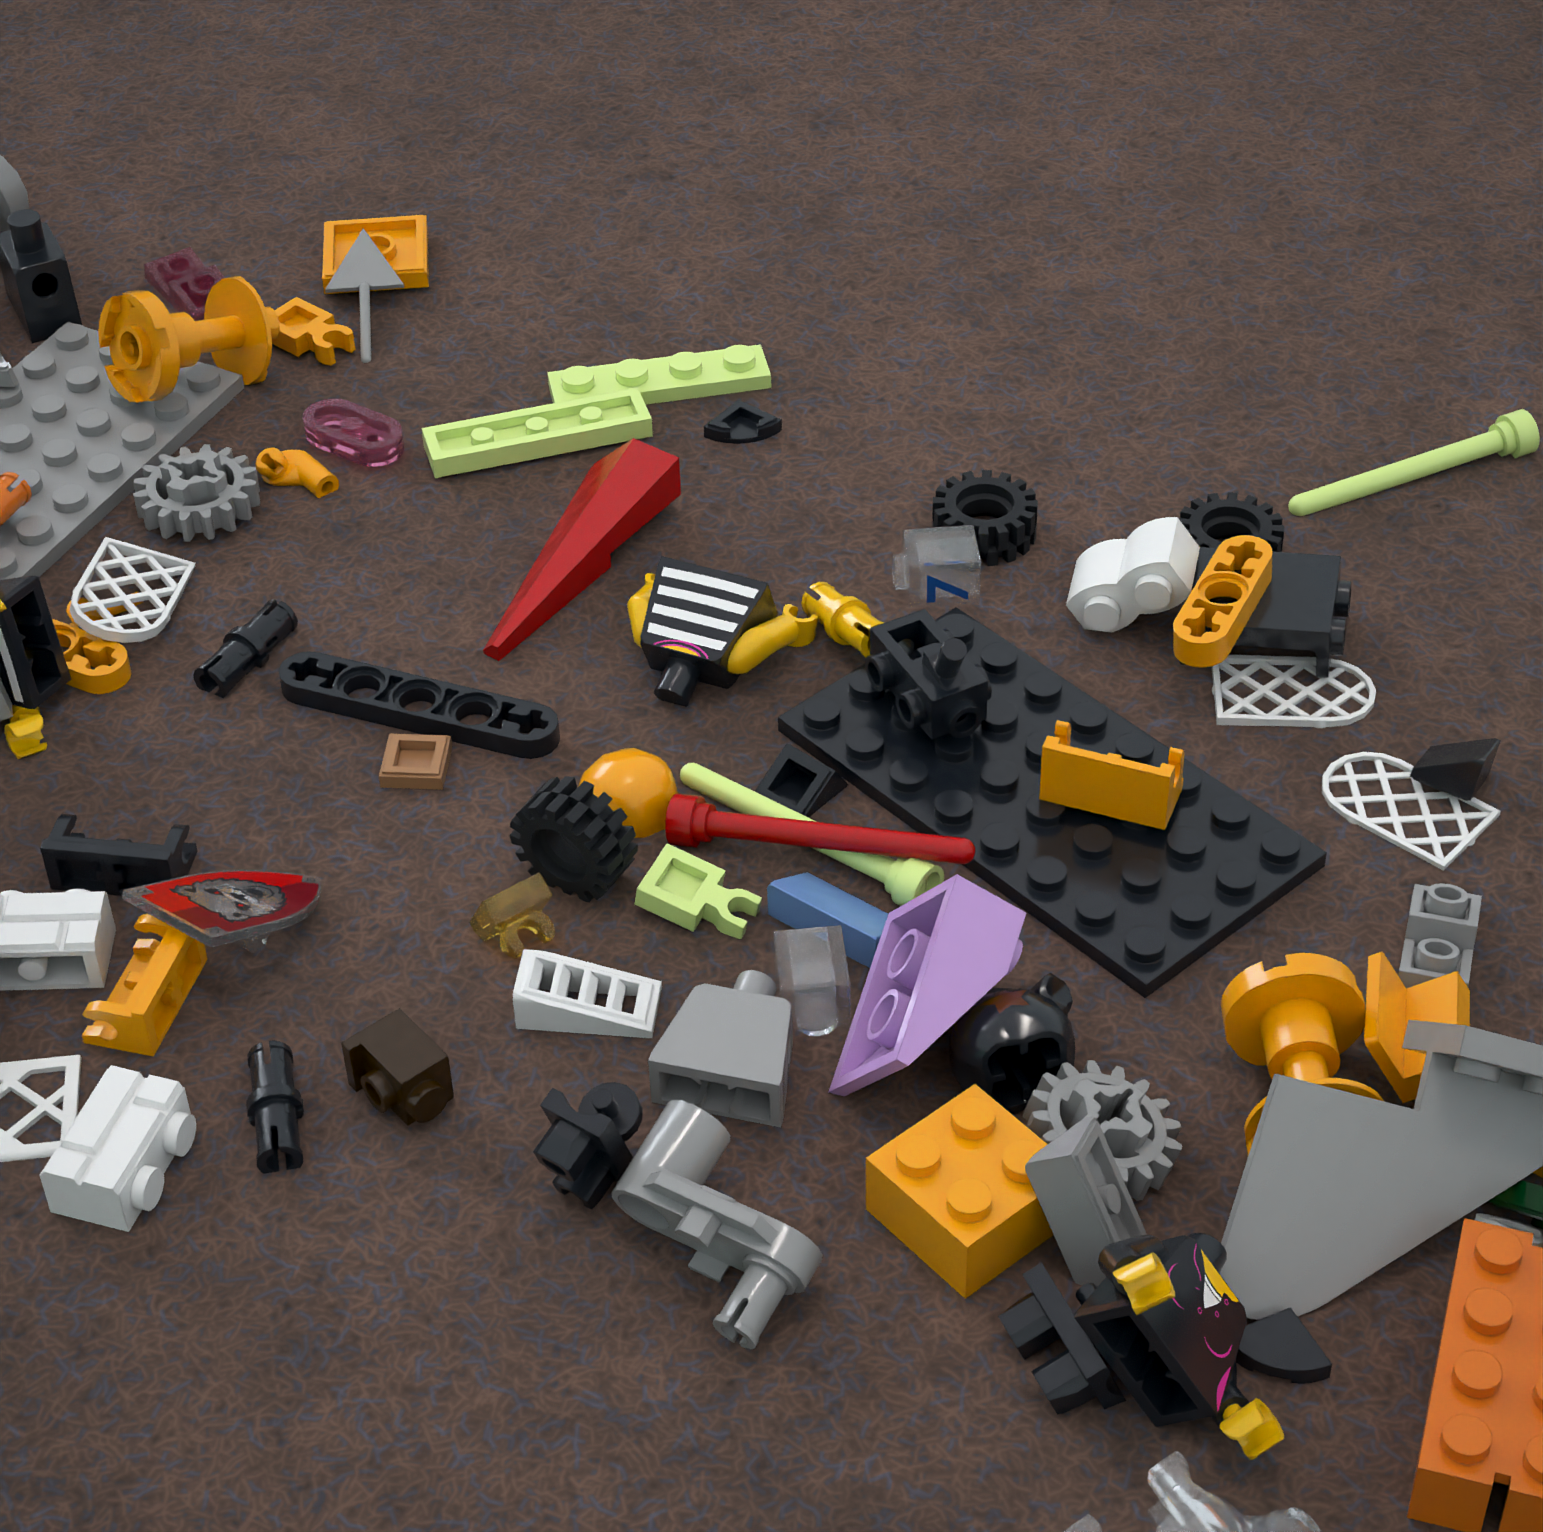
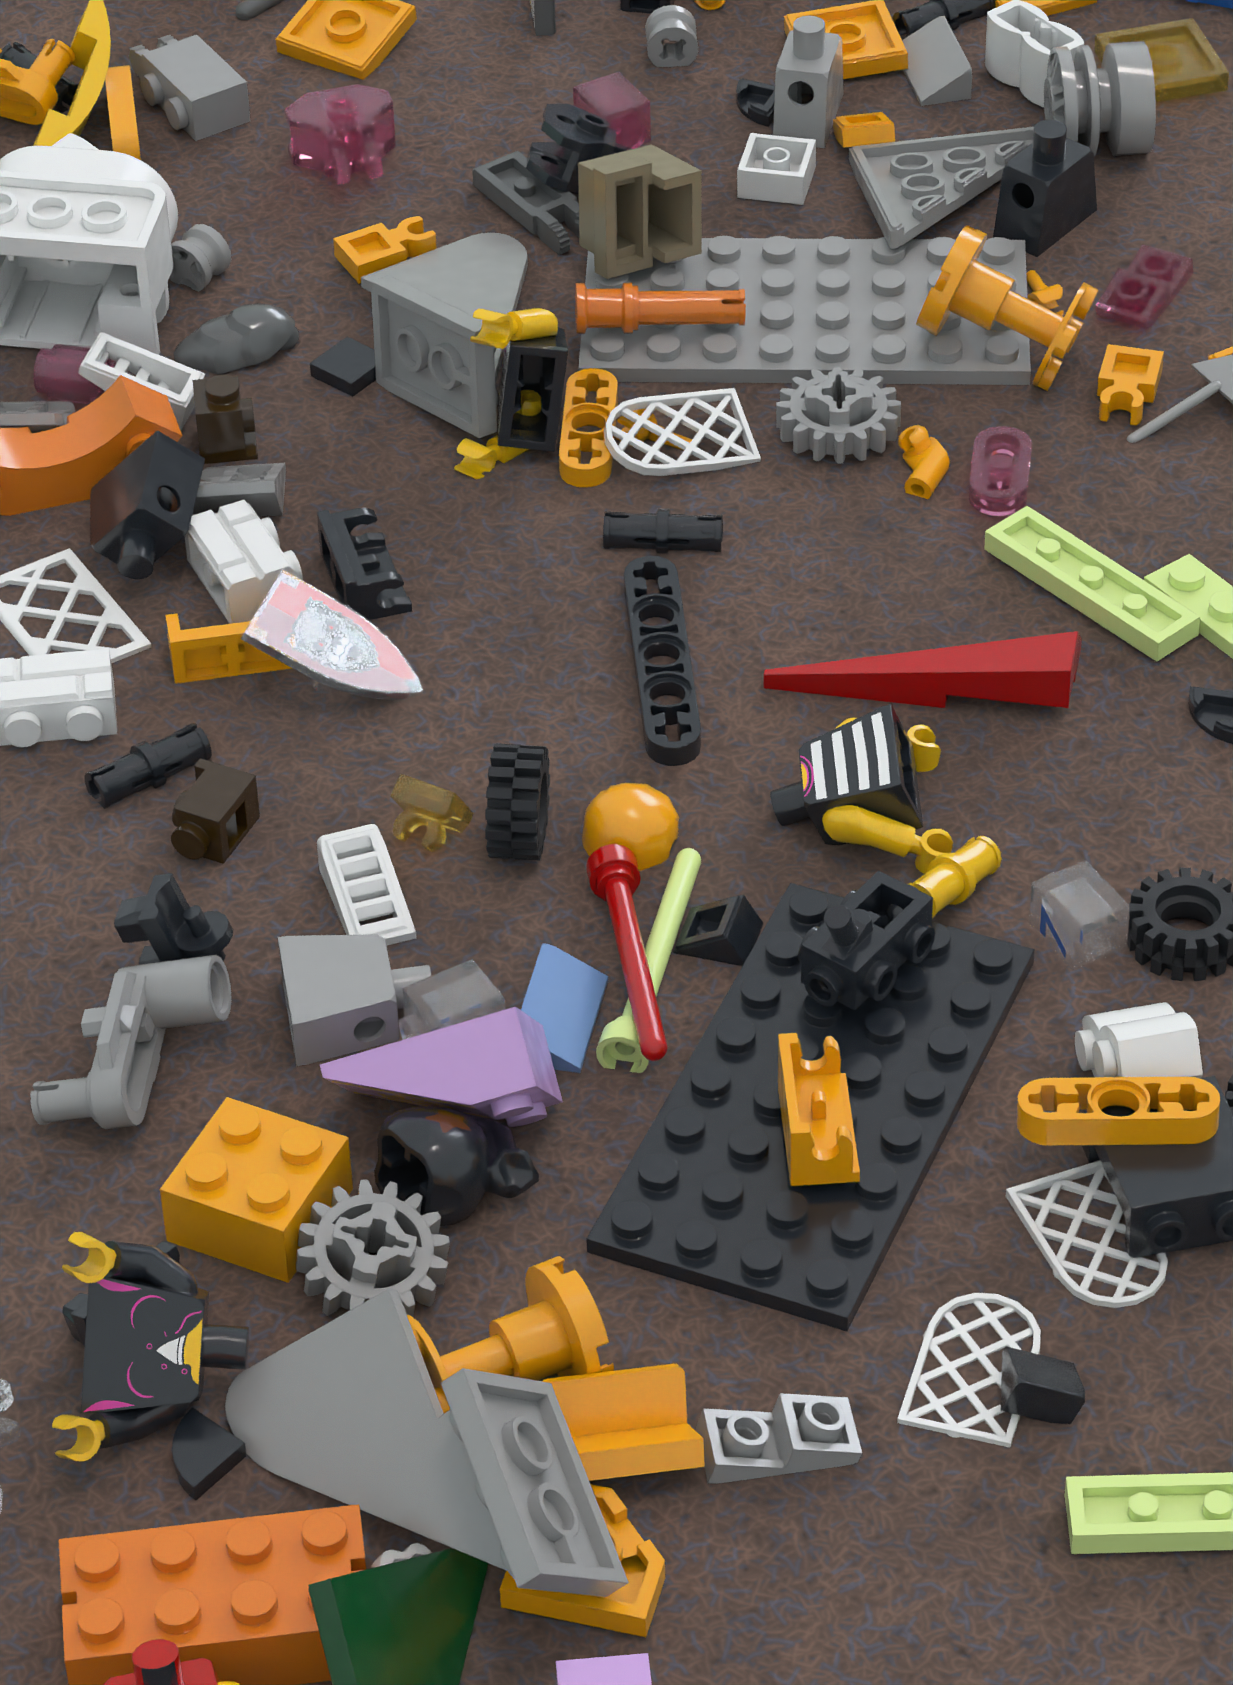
camera: 65 degrees right, 0 degrees up
(415, 761) = (592, 687): medium nougat tile -> none
(691, 889) = (523, 905): yellowish green plate -> none
(1083, 1197) = (265, 1261): light grey slope -> none

